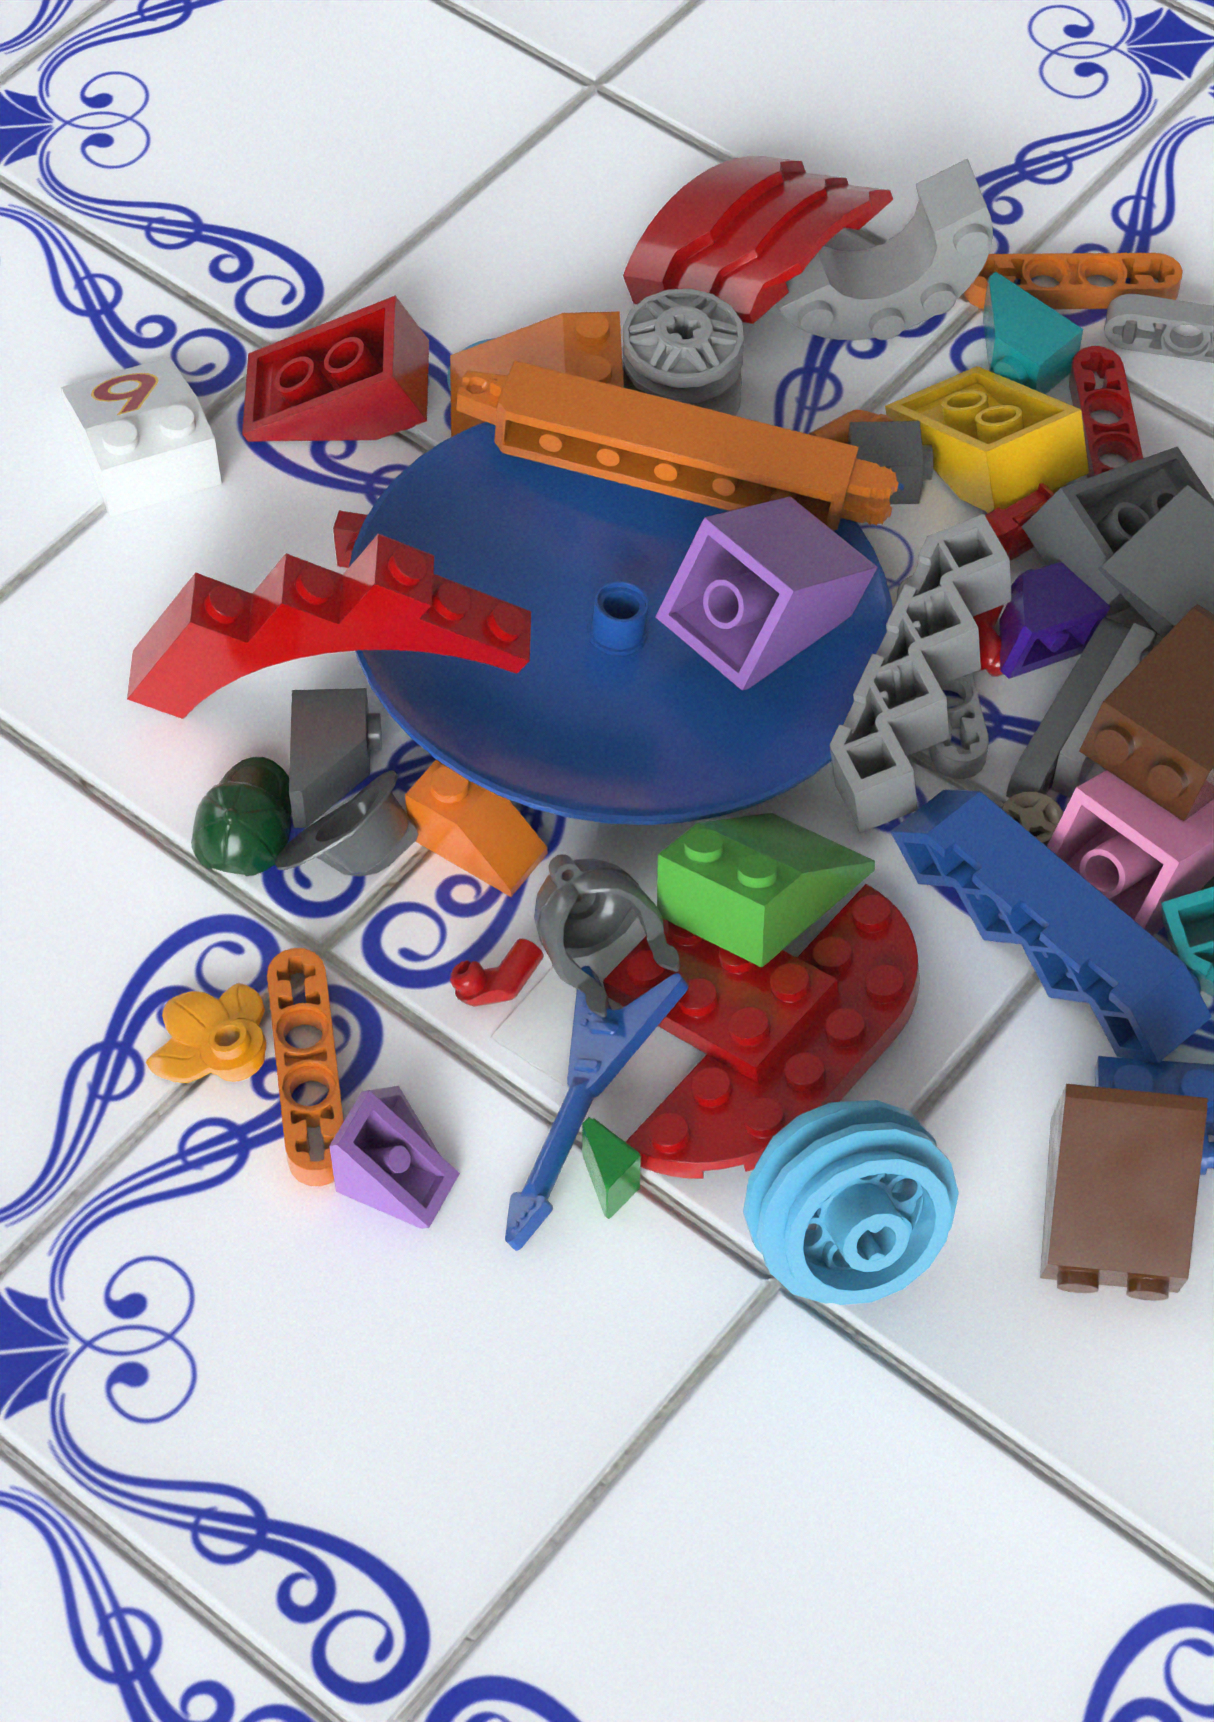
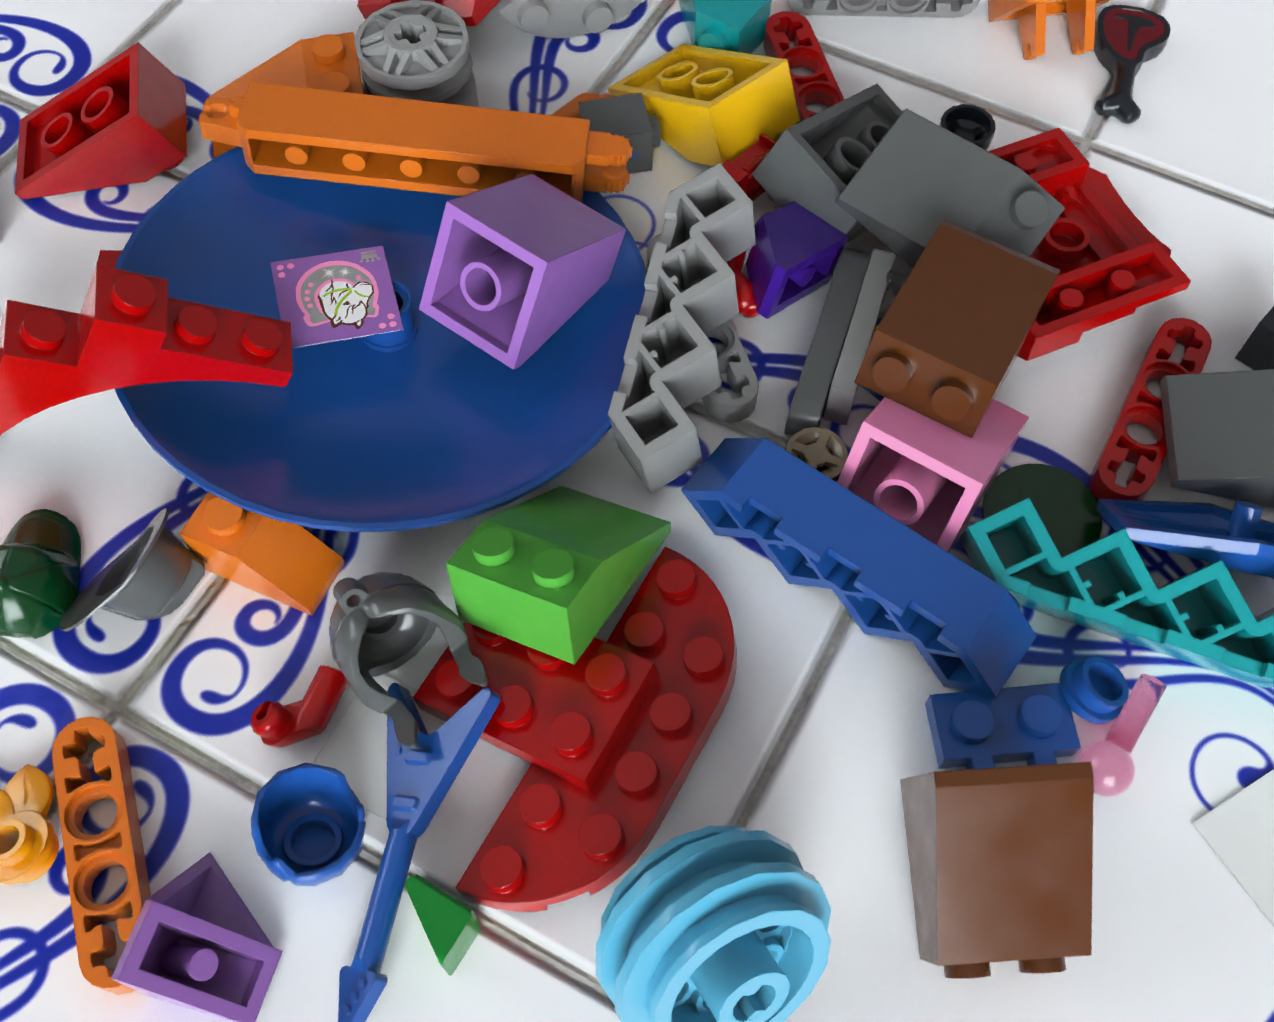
camera: 10 degrees left, 5 degrees up
(329, 748) = (105, 493): dark grey slope -> none
(497, 1067) = (307, 824): none -> blue hair
(575, 591) = (336, 296): none -> sticker

